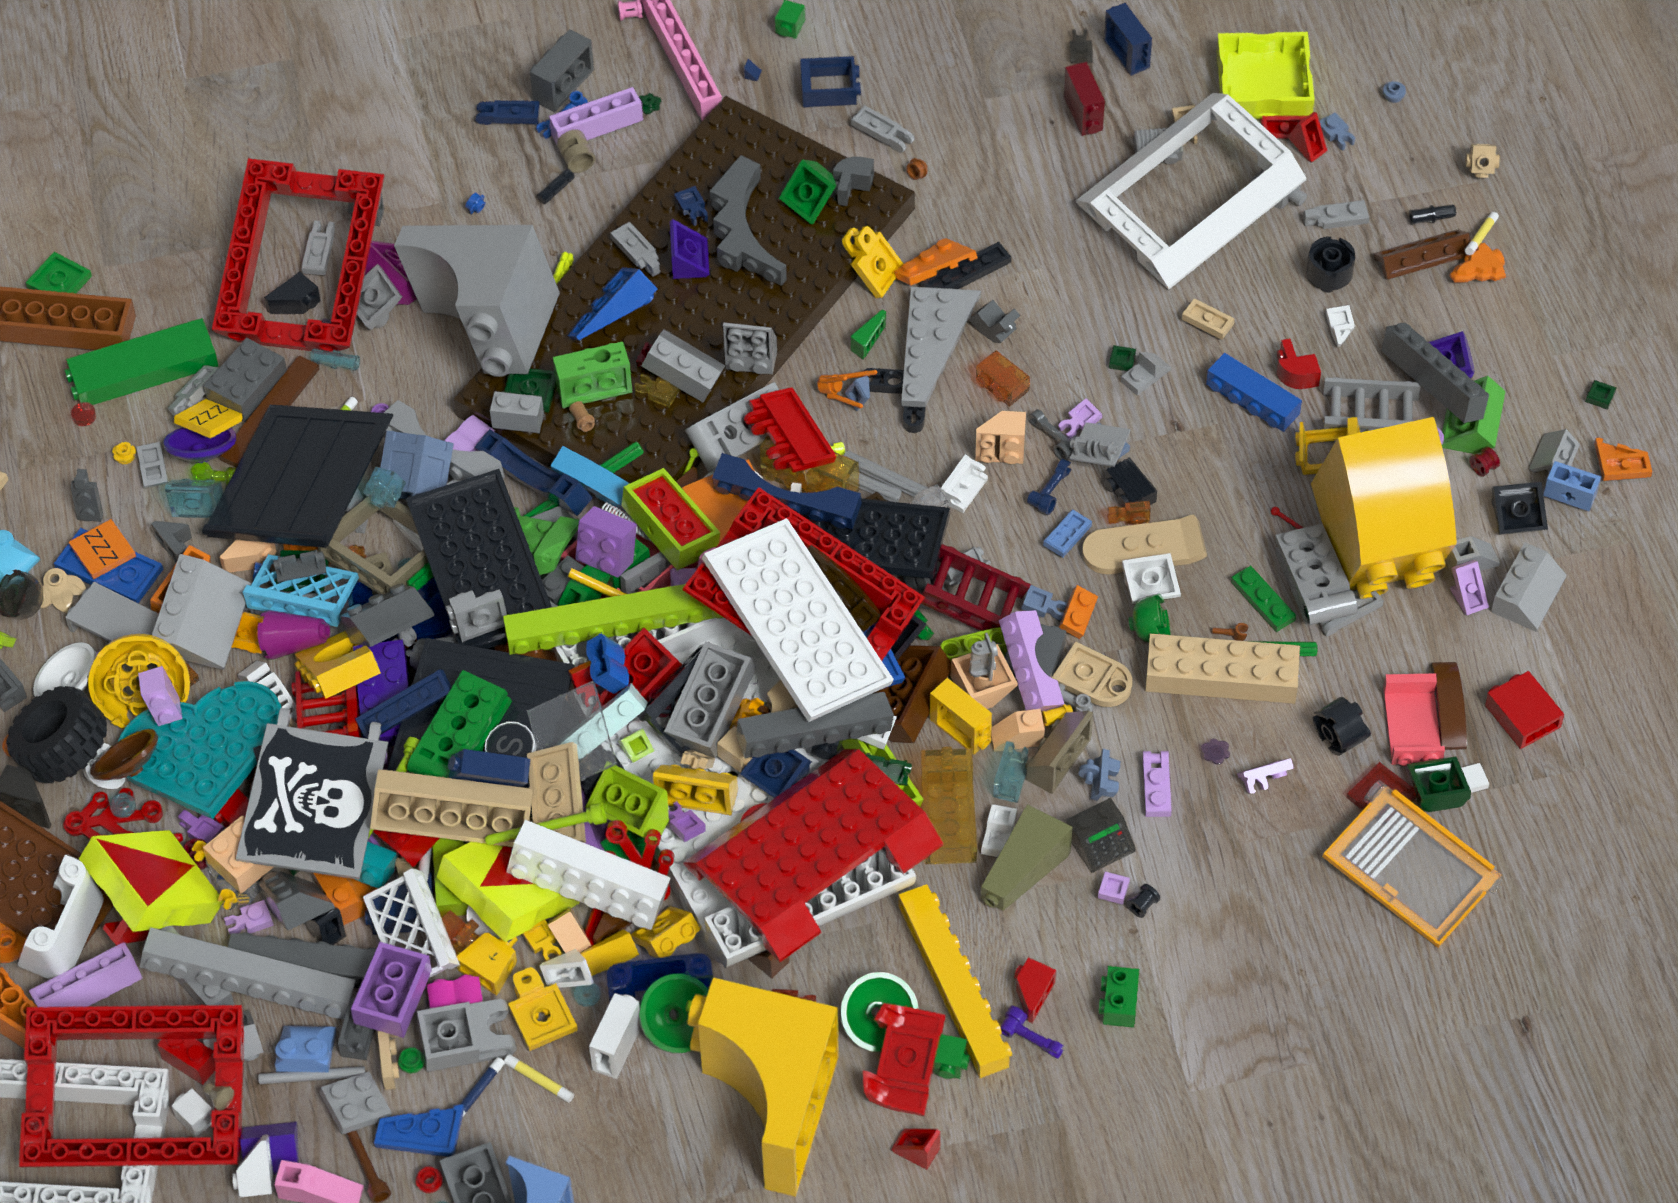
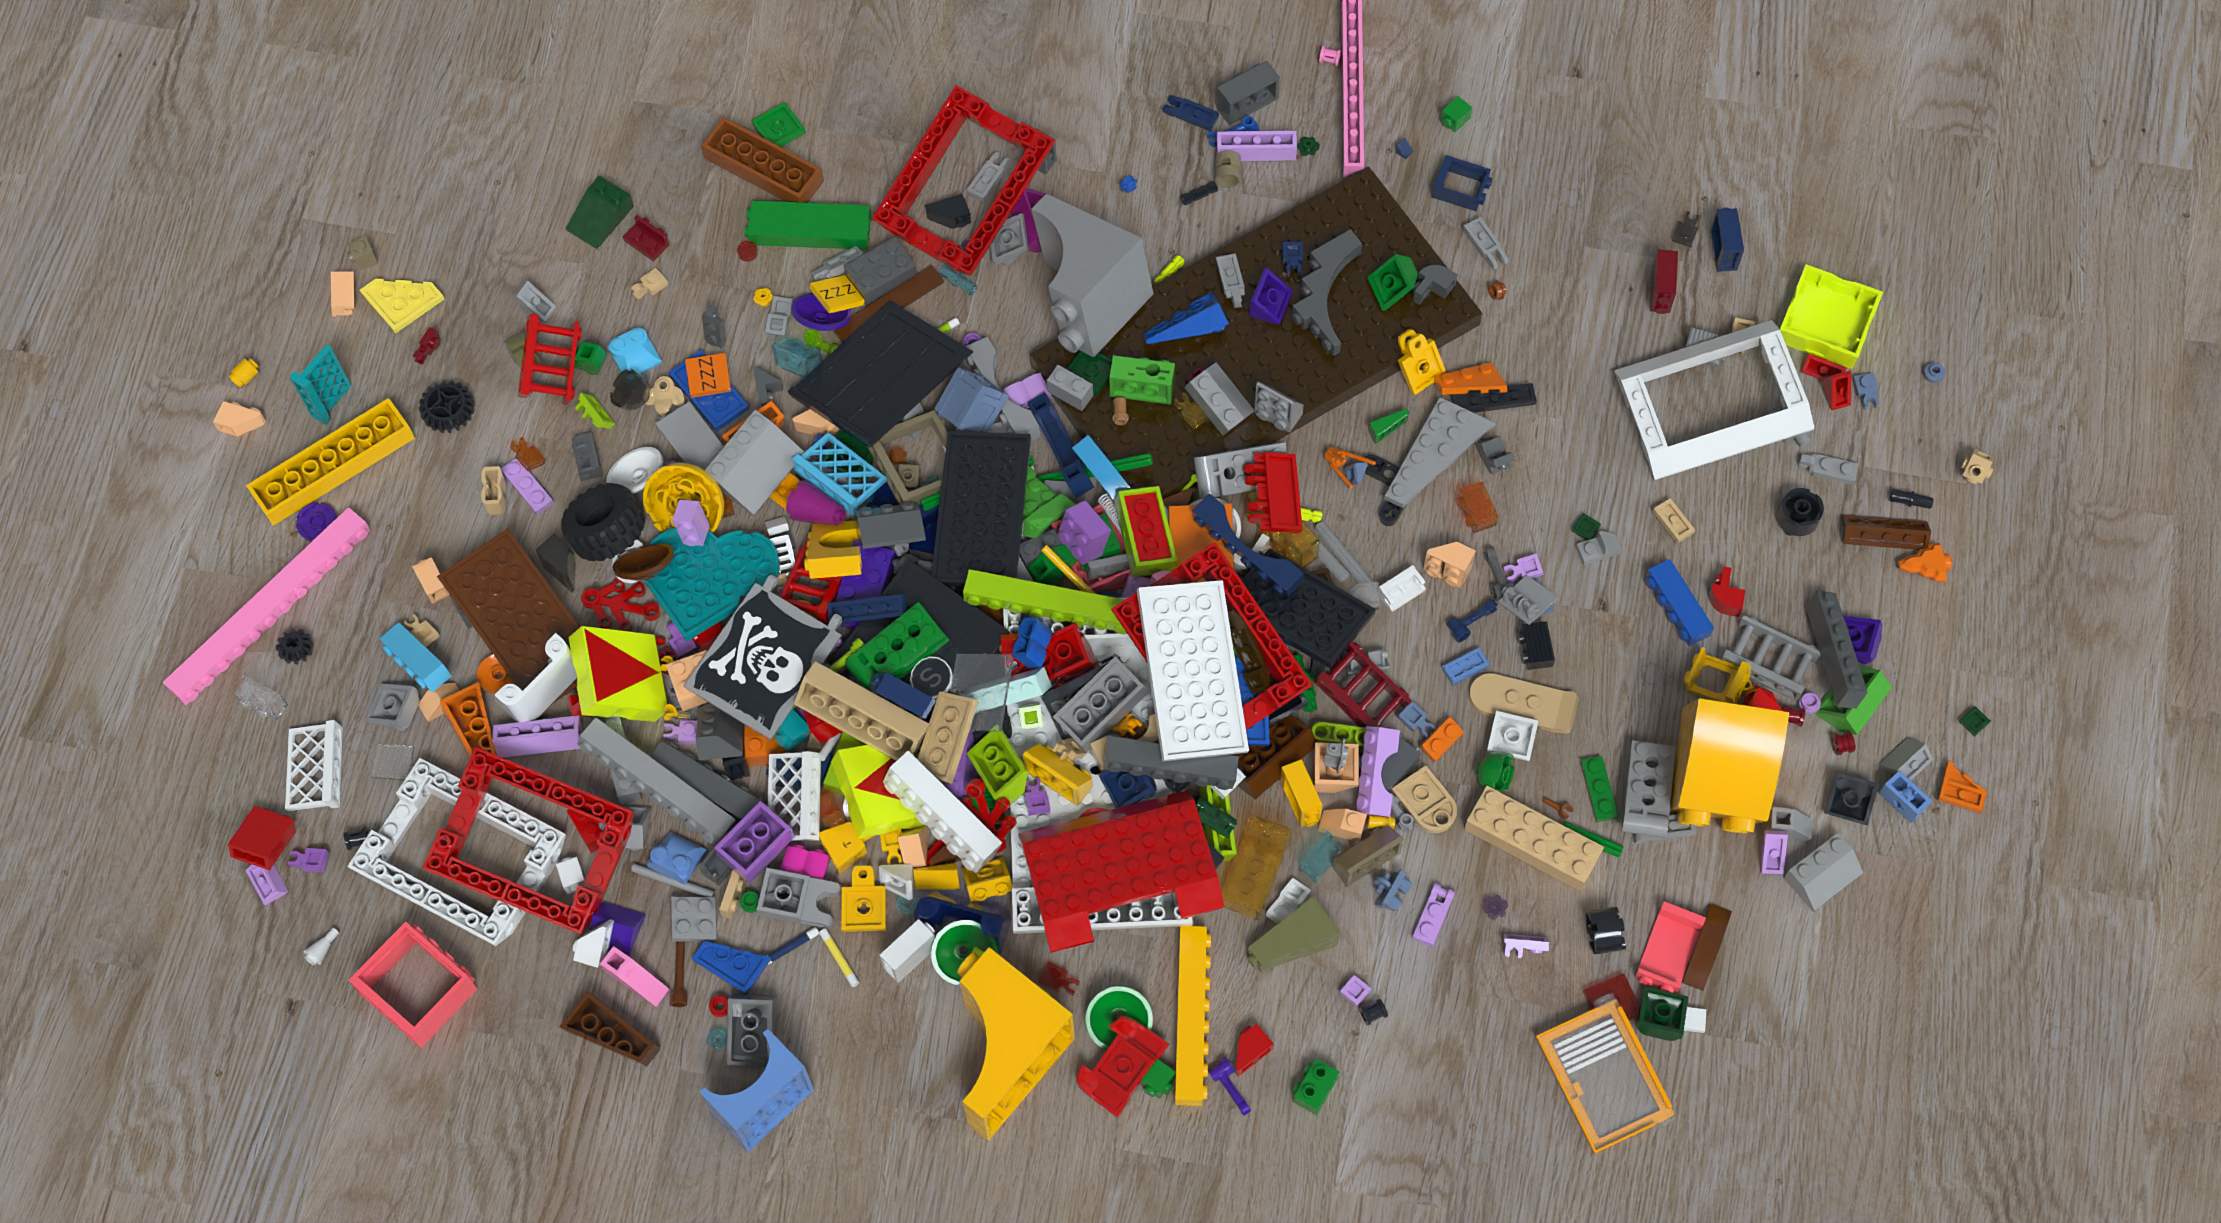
camera: 25 degrees right, 10 degrees up
(120, 800) = (628, 593): clear light blue plate -> none
(220, 1096) = (590, 875): dark tan rock -> none
(307, 565) = (844, 455): dark grey hinge -> none
(384, 488) = (935, 414): clear light blue brick -> none
(474, 615) = (950, 559): light grey plate -> none
(595, 814) = (964, 767): lime piece -> none
(918, 1146) = (1098, 1142): red slope -> none
(1101, 835) = (1365, 942): clear smoke slope -> none
(1132, 513) = (1526, 670): clear orange plate -> none
(1275, 511) = (1647, 715): red hinge -> none
(1340, 323) = (1783, 568): white slope -> none
(1482, 232) = (1943, 534): bar -> none
(1524, 709) = (1766, 978): red brick -> none

